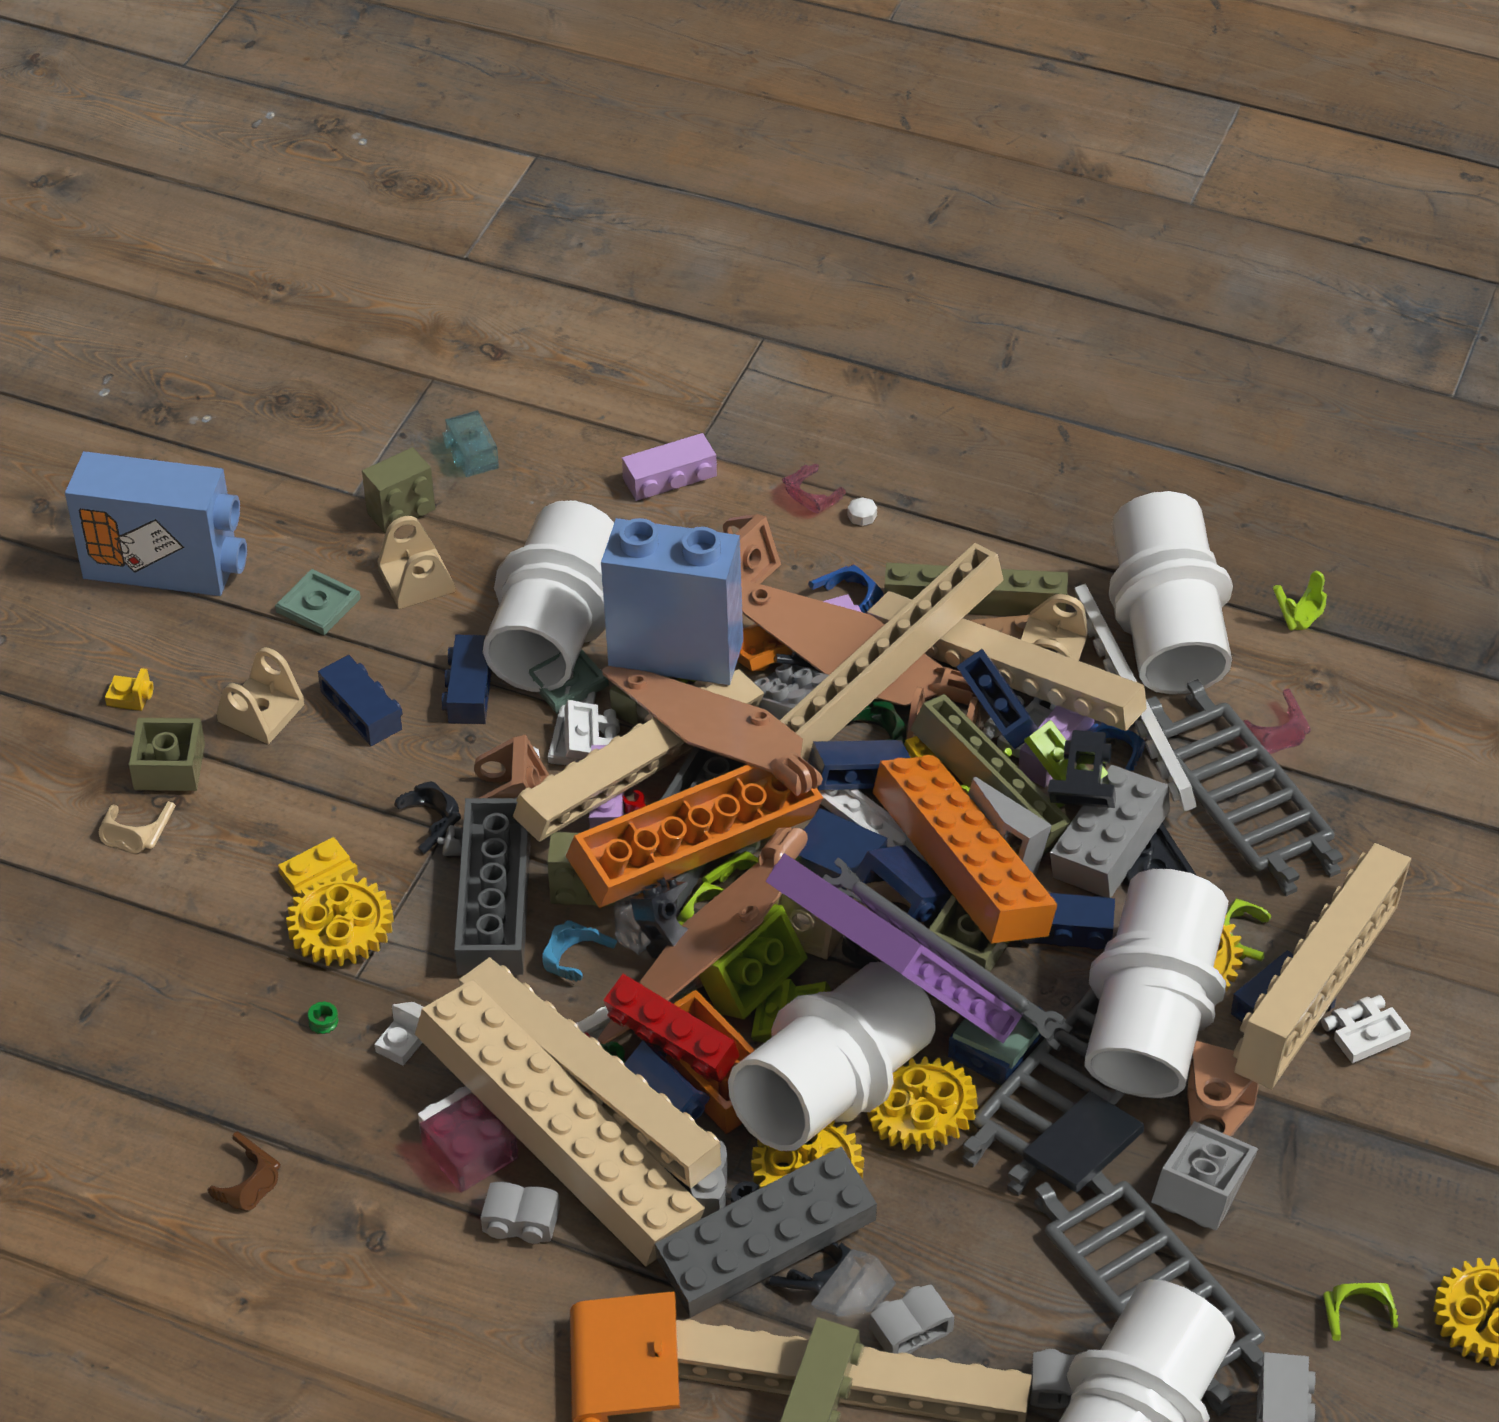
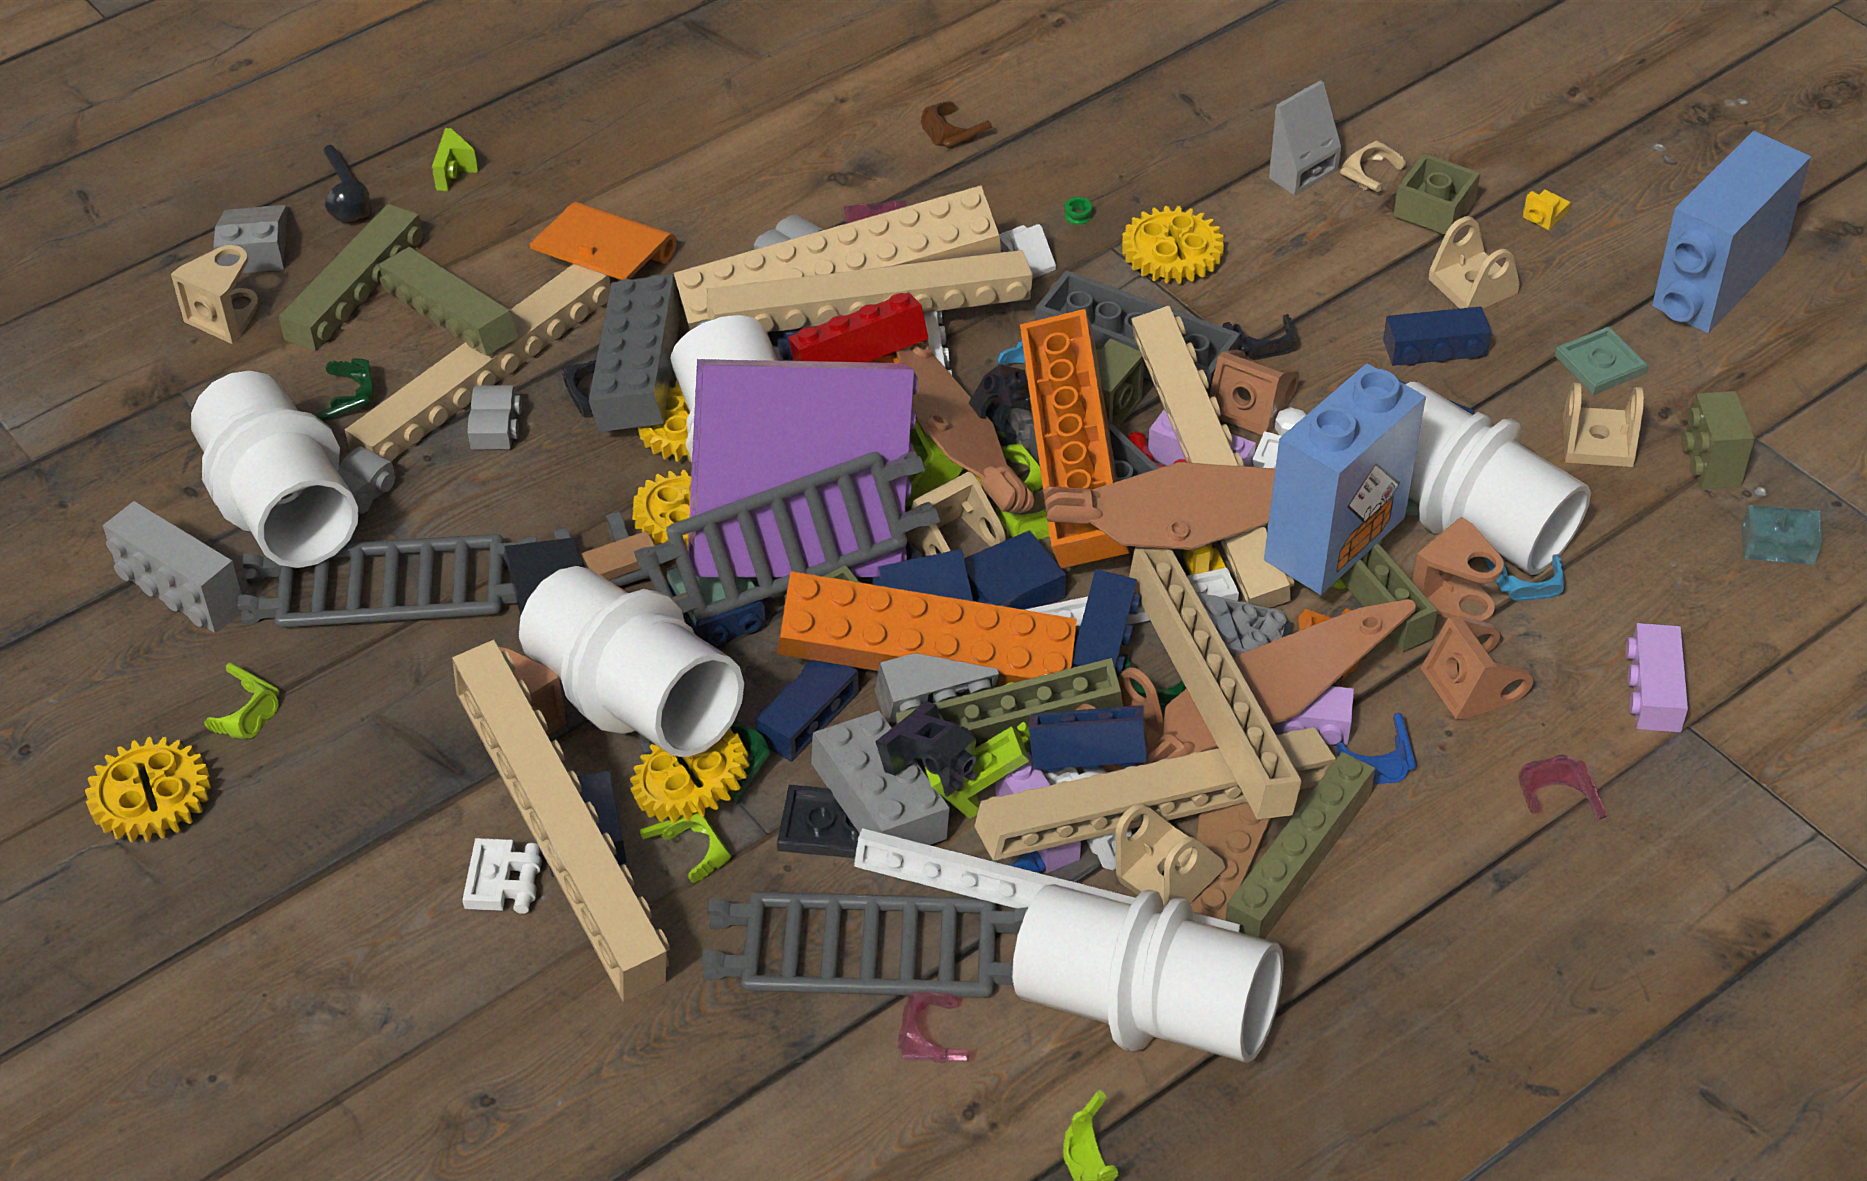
camera: 120 degrees right, 0 degrees up
(154, 862) = (1304, 140): none -> light grey slope
(316, 863) = (1248, 257): yellow plate -> none
(855, 1286) = (544, 388): clear slope -> none
(862, 511) = (1499, 820): white tile -> none
(1014, 1112) = (617, 557): none -> medium nougat tile
(1203, 1175) = (430, 649): light grey slope -> none

